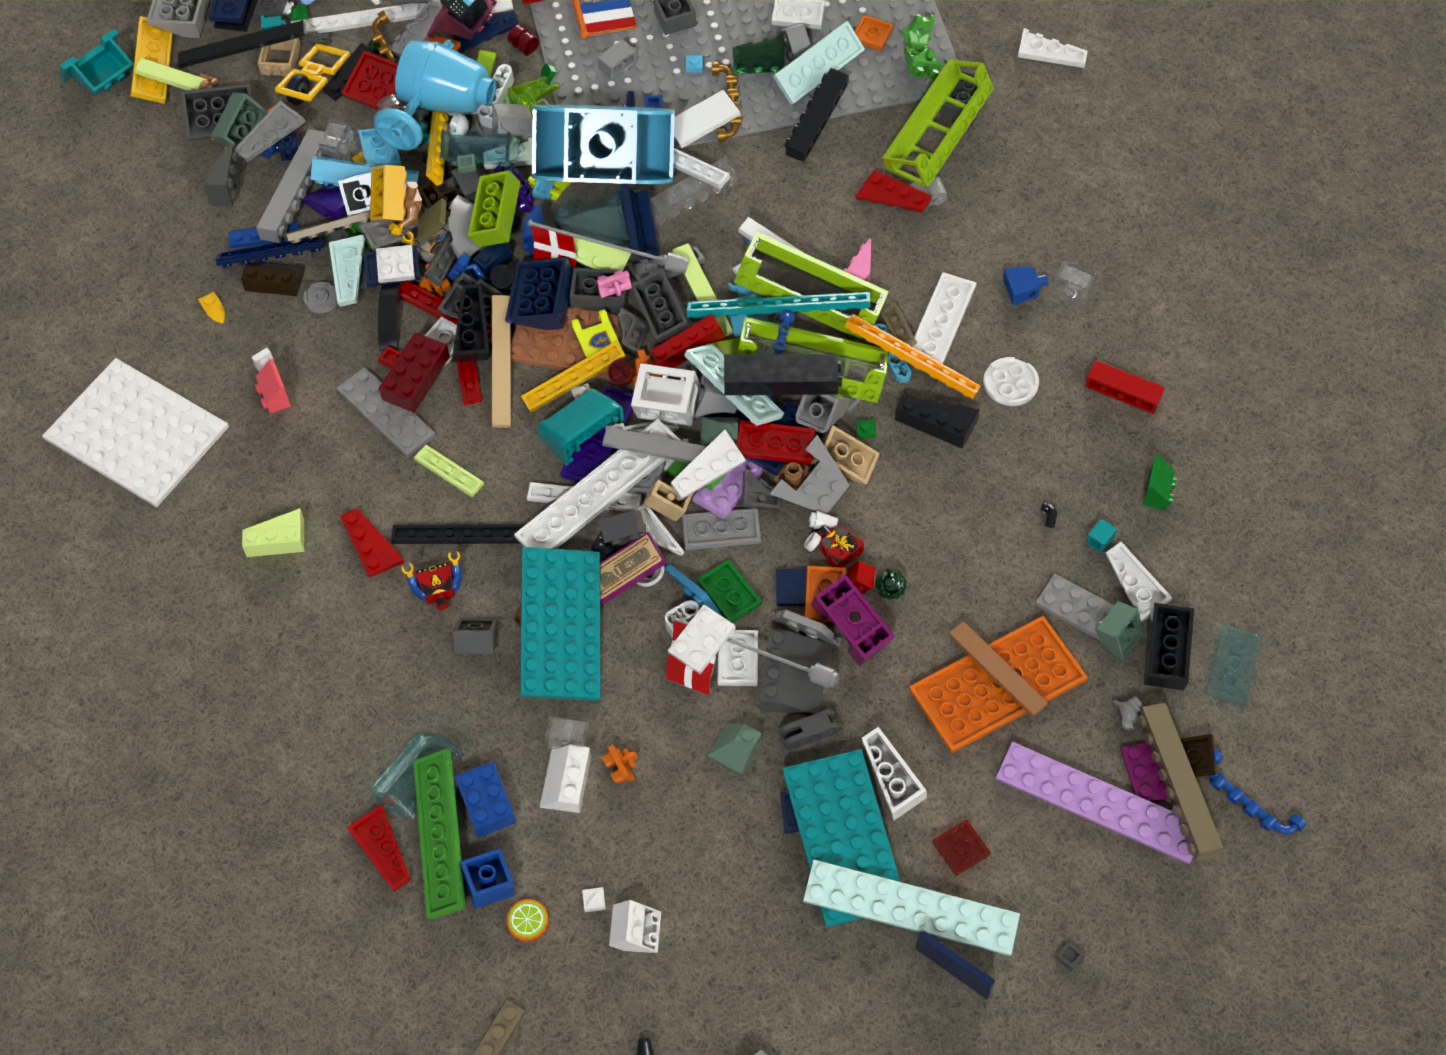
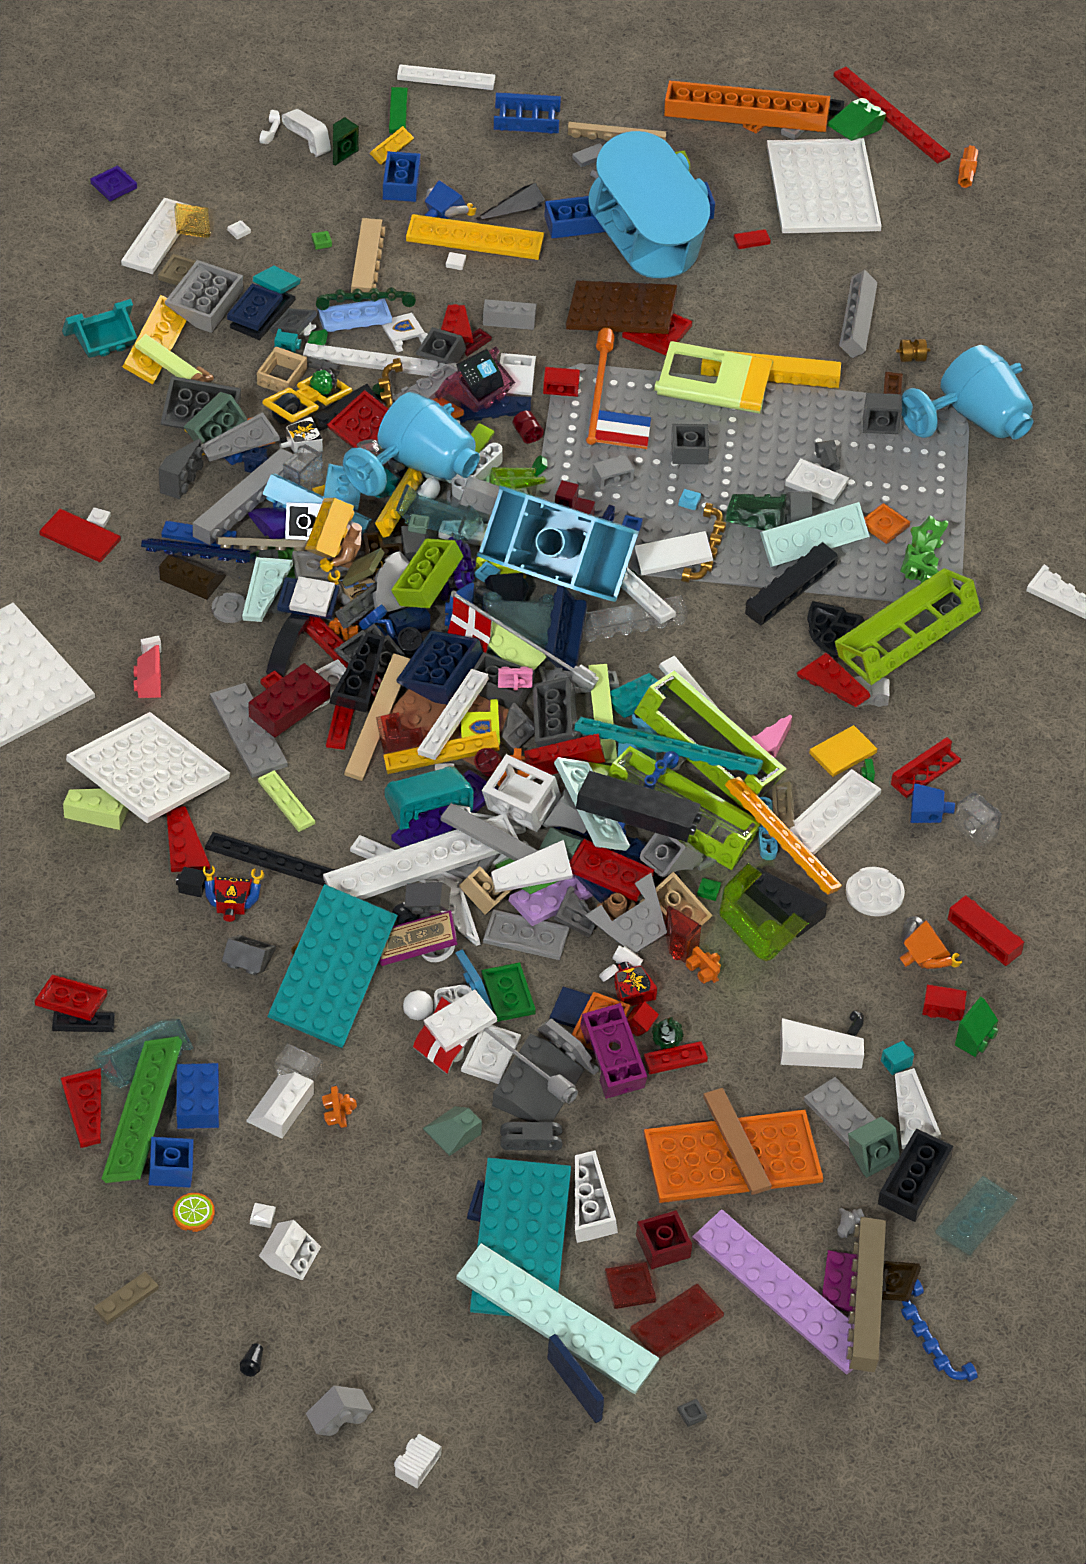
camera: 15 degrees right, 10 degrees down
(153, 271) = (80, 535): none -> red tile
(164, 248) = (99, 517): none -> white plate
(213, 307) = (123, 585): yellow plate -> none
(242, 44) = (262, 350): black tile -> none
(308, 482) = (148, 767): none -> white plate
(322, 53) = (324, 382): none -> green piece
(322, 110) = (302, 433): none -> torso
(324, 739) = (71, 997): none -> red tile
(345, 759) = (99, 1023): none -> black tile
(393, 582) = (191, 882): none -> black brick
(527, 377) = (393, 737): none -> clear red brick
(569, 196) = (509, 586): none -> black torso
(571, 337) = (453, 714): none -> white plate
(589, 96) = (568, 496): none -> dark red brick
(652, 633) = (418, 1005): none -> white hair
(724, 263) = (628, 696): none -> teal plate
(863, 483) = (682, 934): none -> clear red slope
(868, 143) = (829, 624): none -> black brick
(895, 502) = (706, 962): none -> orange hips
(906, 604) = (675, 1057): none -> red plate
(926, 257) = (843, 751): none -> yellow tile
(936, 465) = (770, 936): none -> clear neon green windscreen
(957, 268) = (867, 770): none -> green plate
(974, 791) = (663, 1239): none -> dark red brick
(1000, 246) = (923, 762): none -> red fence
(1017, 868) = (677, 1321): none -> clear red plate
(1028, 549) = (819, 1047): none -> white wedge
(1079, 420) = (925, 946): none -> orange torso
(1118, 468) = (944, 1002): none -> red brick

